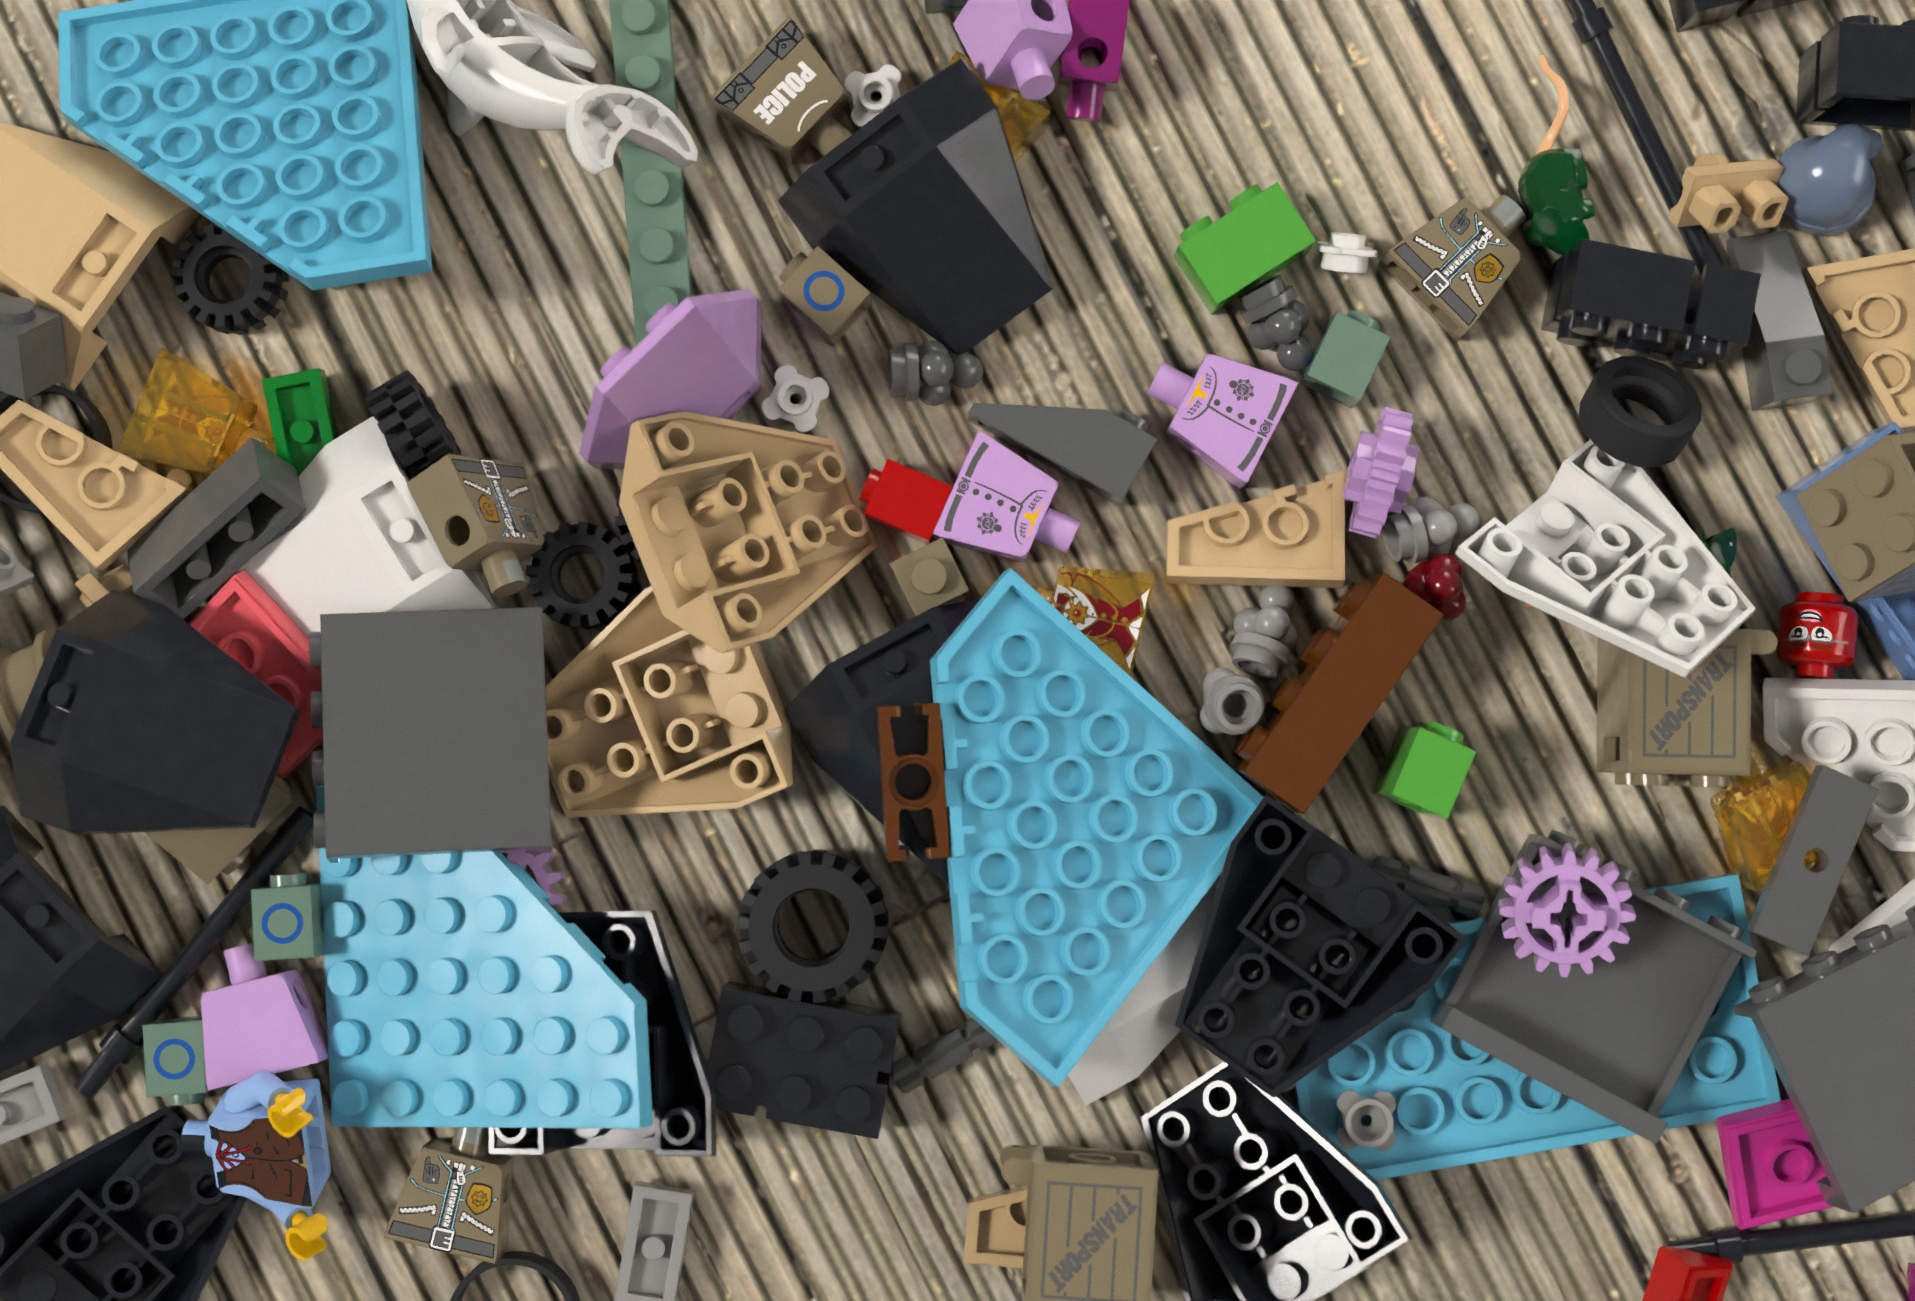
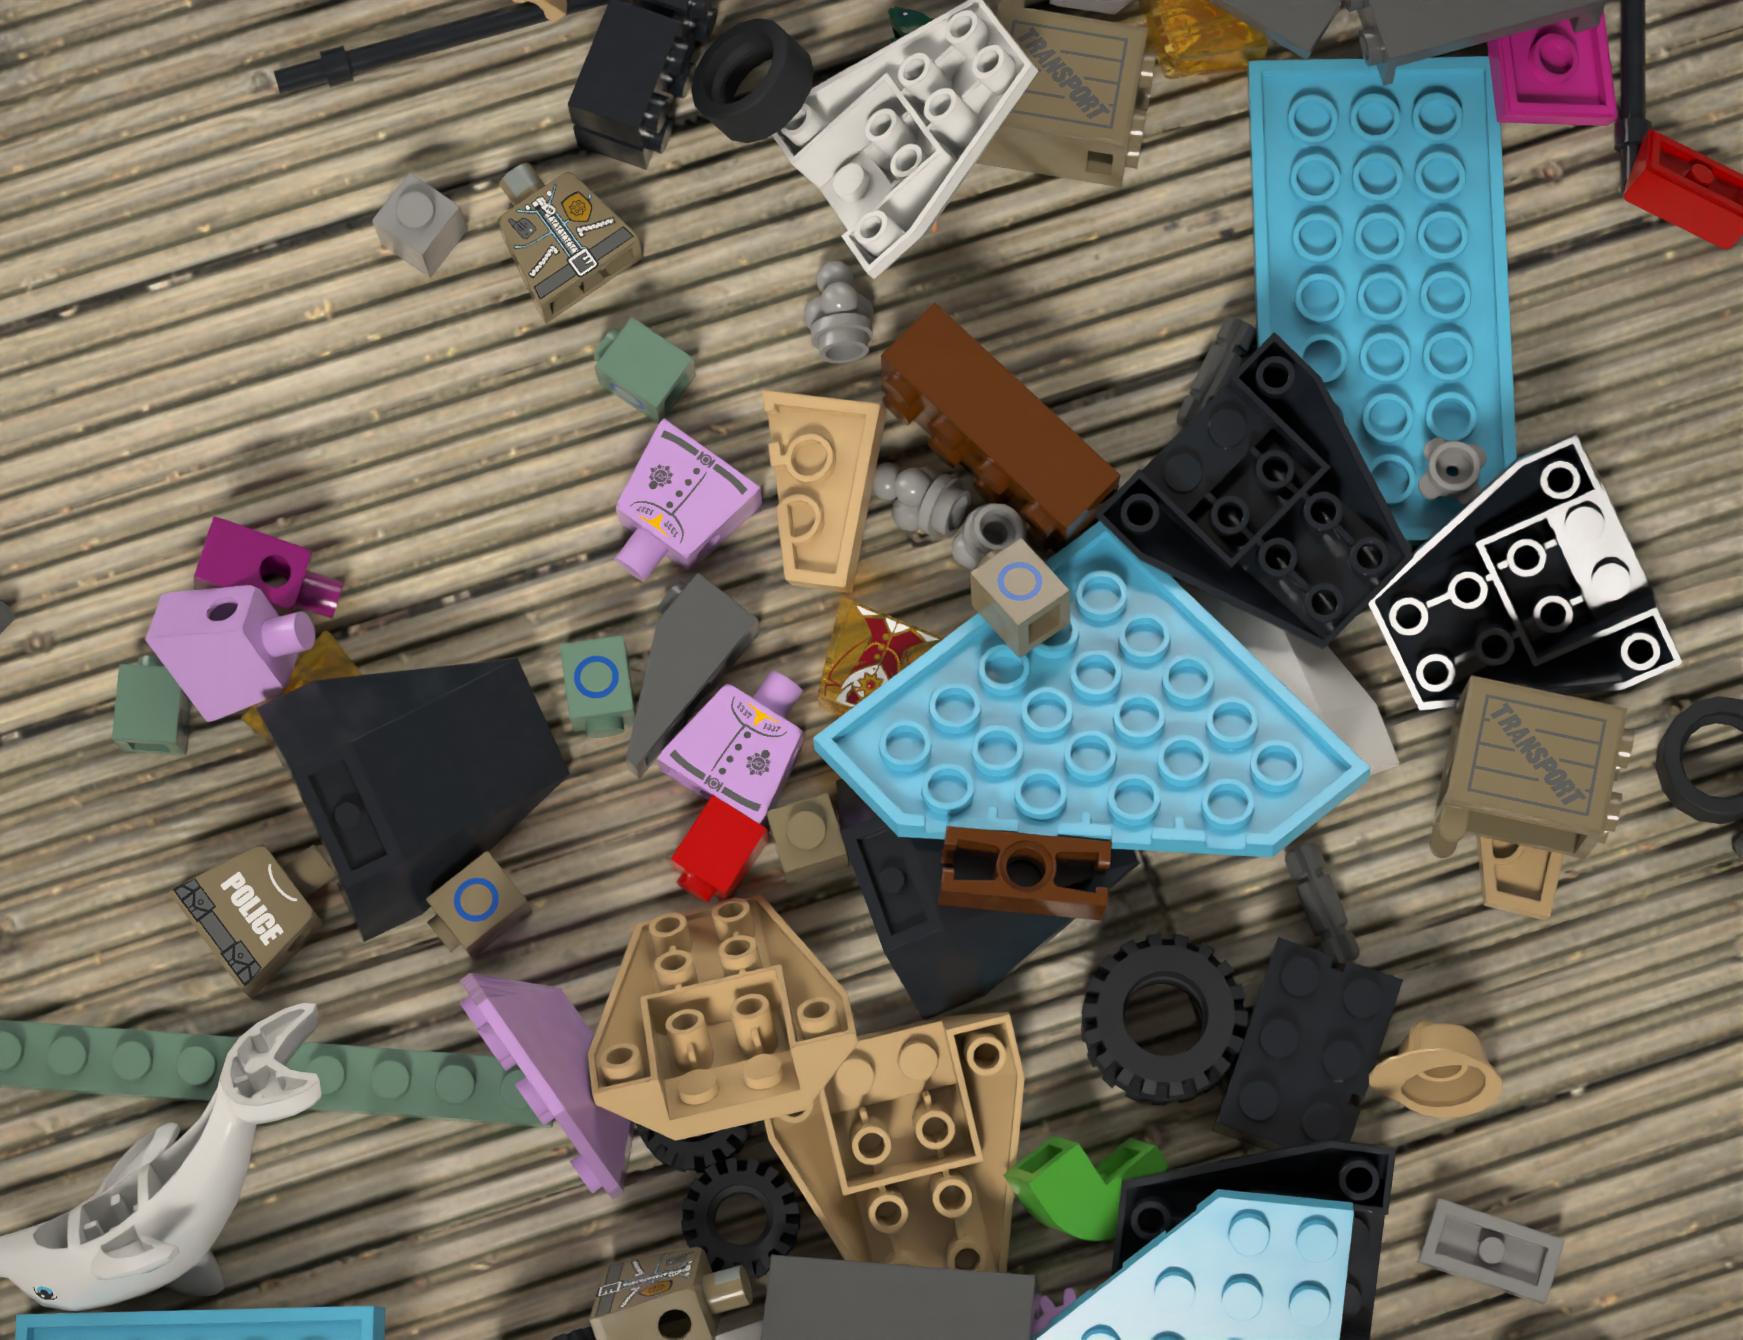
camera: 80 degrees left, 10 degrees down
(641, 878) = (1070, 1193): none -> bright green brick
(801, 414) = (588, 974): white plate -> none
(807, 1182) = (1439, 1072): none -> tan piece
(863, 85) = (283, 831): white plate -> none
(928, 372) = (580, 809): dark grey piece -> none
(1041, 367) = (598, 686): none -> sand green brick
(1174, 737) = (1019, 597): none -> dark tan brick
(1242, 246) = (506, 455): bright green brick -> none
(1277, 320) = (589, 433): dark grey piece -> none
(1346, 253) = (531, 351): white plate -> none
(1380, 472) = (772, 348): lavender gear -> none
(1425, 769) = (1092, 353): bright green brick -> none
(1439, 584) = (897, 308): dark red piece -> none
(1450, 128) = (420, 225): none -> light grey brick
(1554, 185) = (499, 130): dark green animal -> none
(1588, 915) = (1268, 207): lavender gear -> none
(1604, 1035) = (1338, 223): dark grey panel -> none

